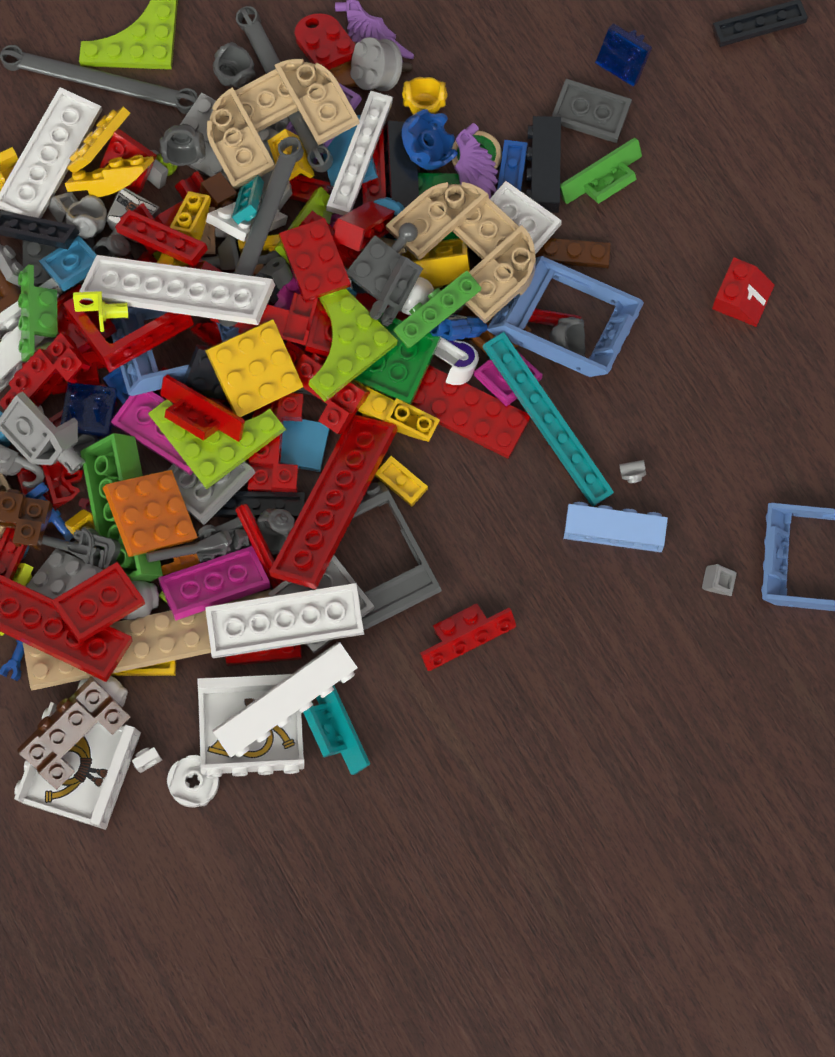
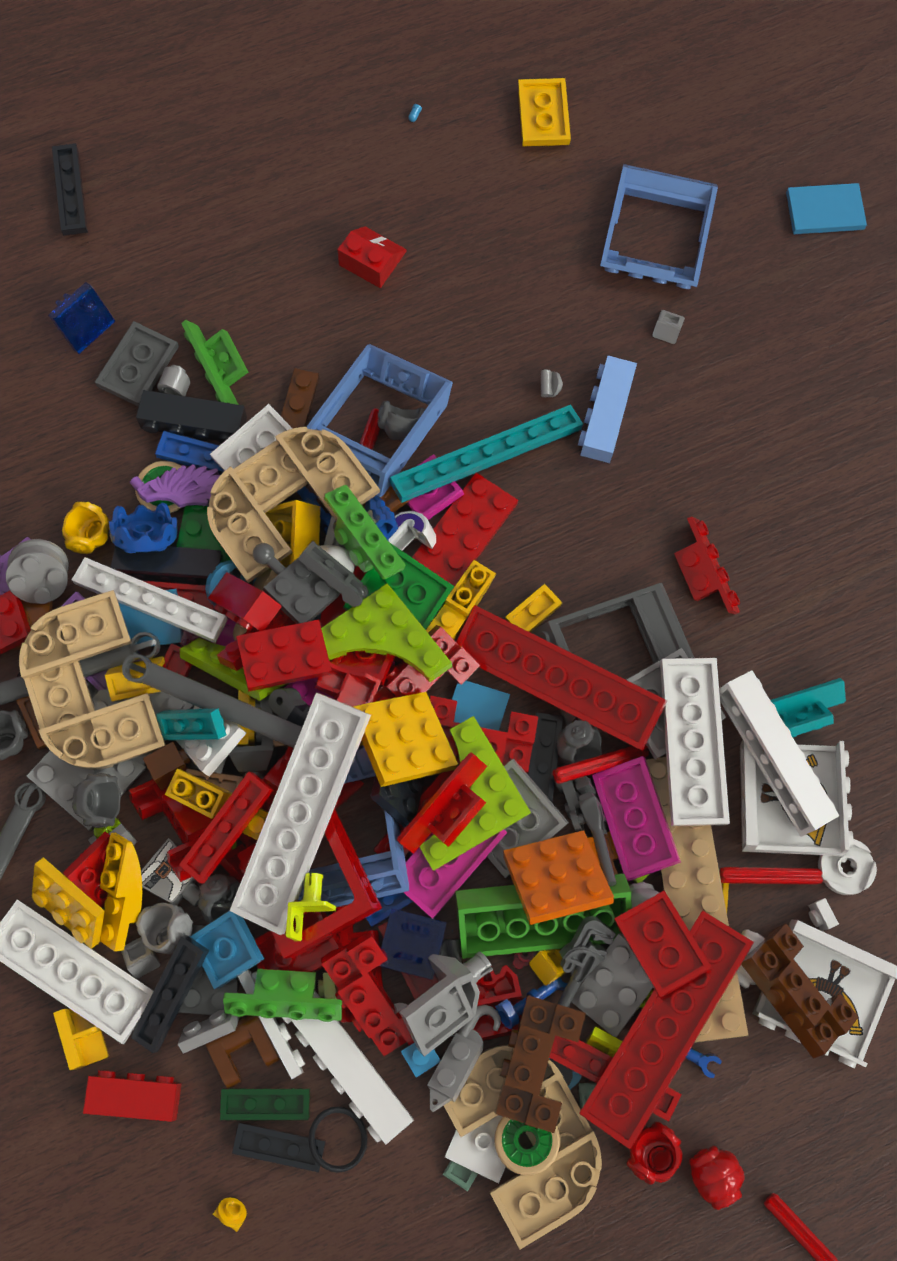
camera: 90 degrees left, 0 degrees up
(176, 708) = (771, 875): none -> red axle
(576, 143) = (174, 381): none -> light grey plate

